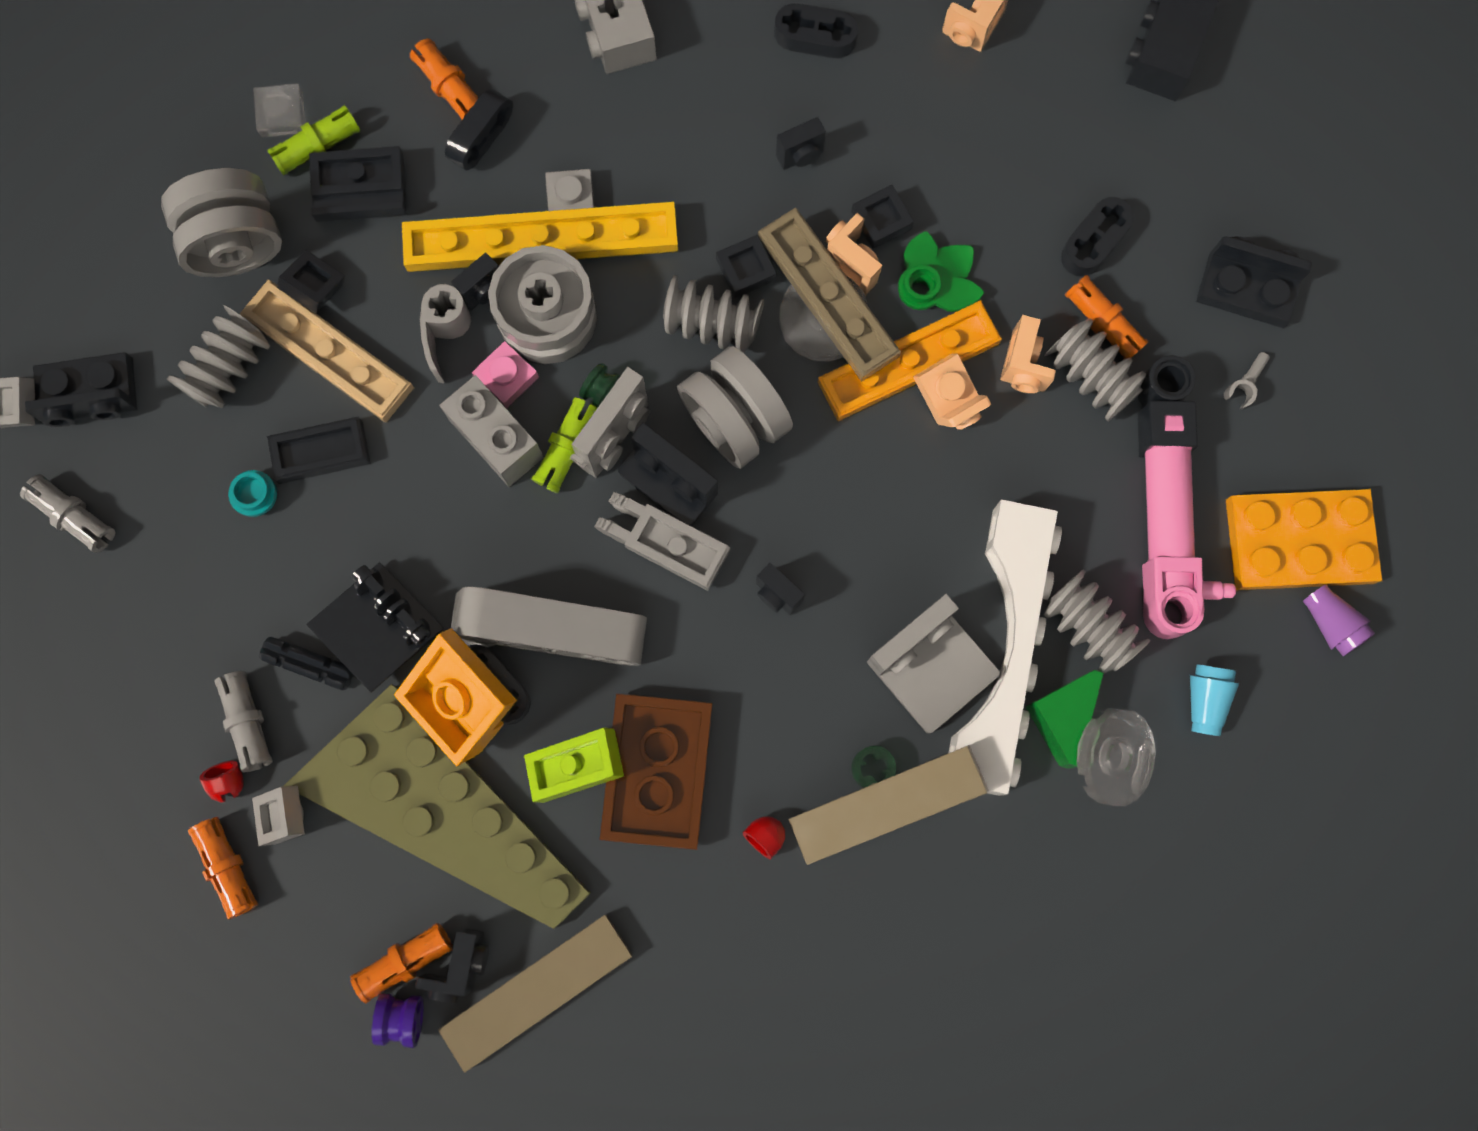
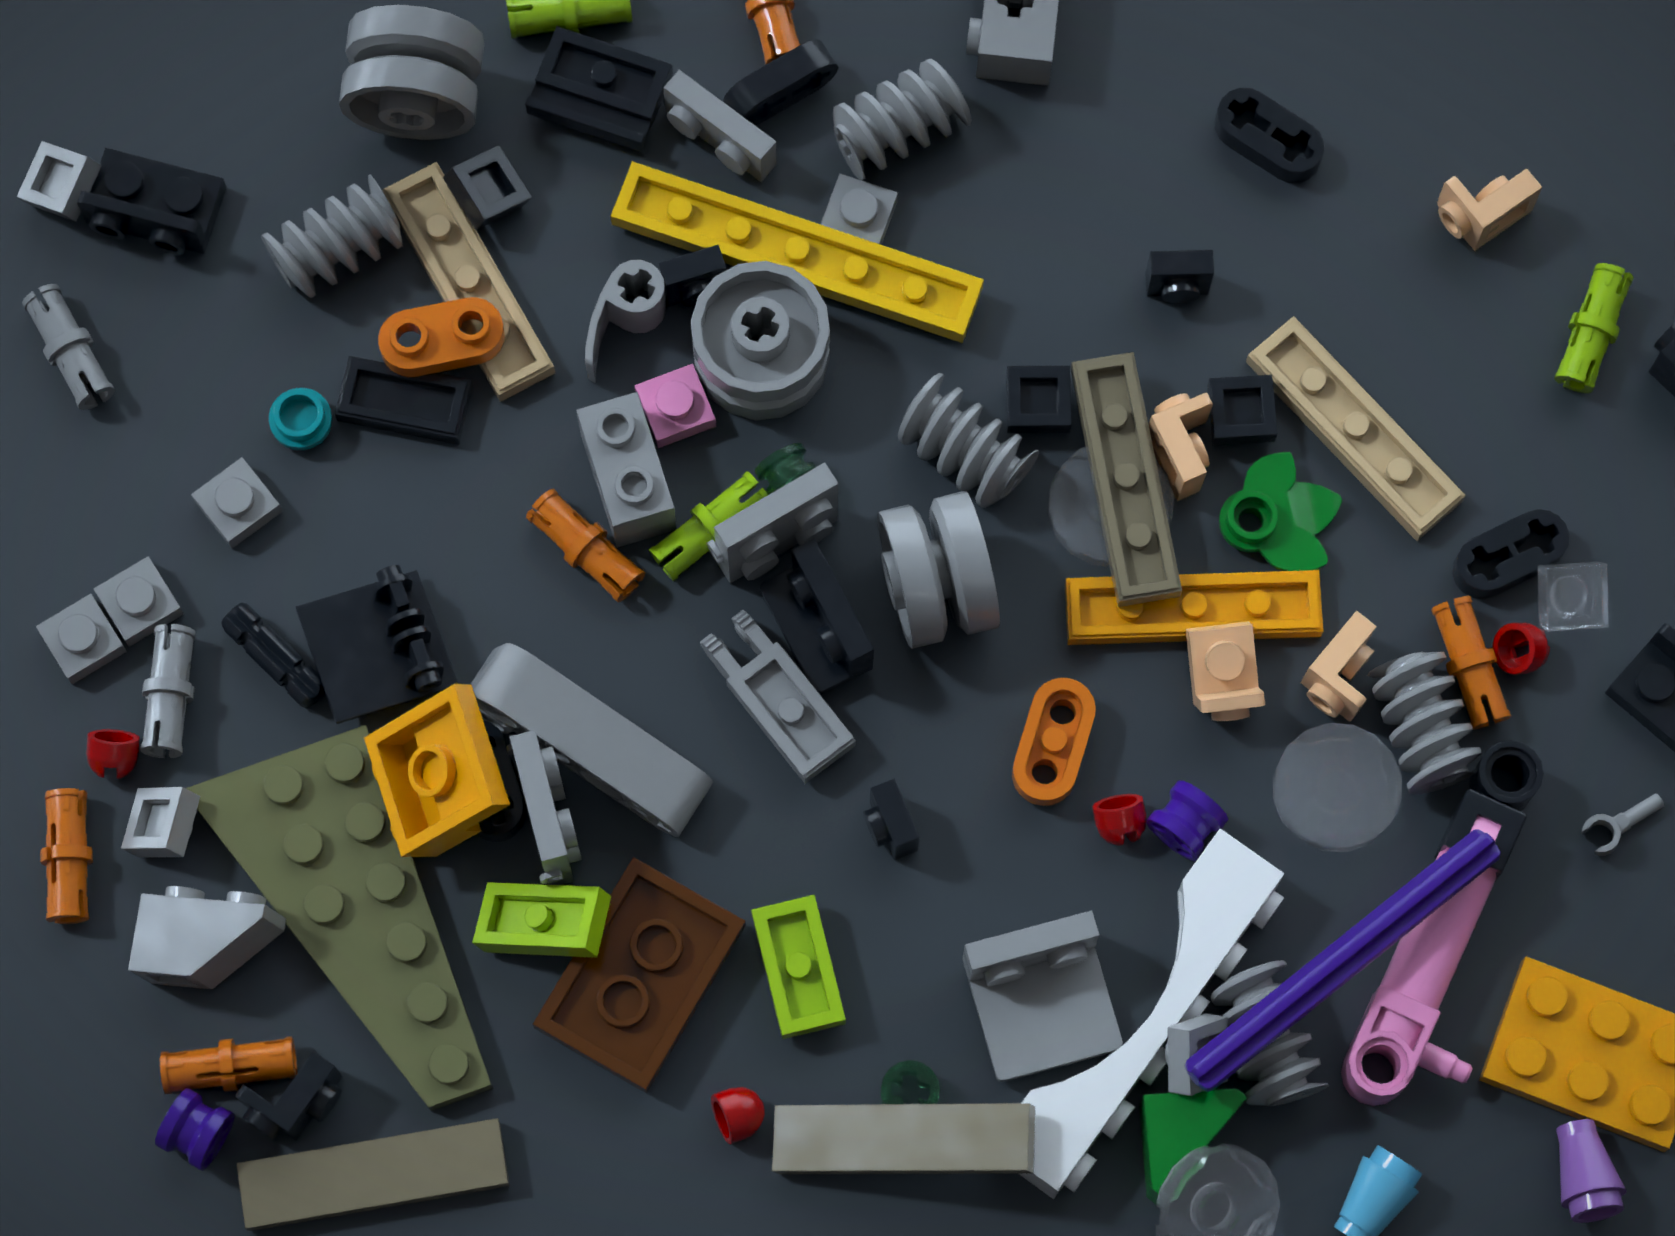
camera: 25 degrees right, 5 degrees down
(166, 711) = (81, 639): none -> light grey plate
(195, 667) = (138, 601): none -> light grey plate
(234, 570) = (237, 502): none -> light grey plate
(325, 399) = (441, 340): none -> orange plate
(339, 888) = (197, 939): none -> light grey slope
(439, 171) = (702, 114): none -> light grey plate
(487, 494) = (585, 545): none -> orange pin
(531, 675) = (542, 788): none -> light grey plate
(565, 116) = (898, 115): none -> light grey piece
(761, 717) = (798, 967): none -> lime plate
(861, 491) = (1053, 743): none -> orange plate
(927, 521) = (1120, 816): none -> red hinge
(960, 198) = (1356, 428): none -> tan tile
(973, 503) = (1187, 820): none -> dark purple wheel
(1056, 658) = (1183, 1042): none -> light grey plate
(1057, 438) = (1337, 787): none -> clear tile
(1082, 67) = (1594, 328): none -> lime pin
(1127, 554) = (1342, 960): none -> dark purple axle
(1128, 286) = (1518, 635): none -> red hinge
(1152, 246) = (1573, 596): none -> clear plate

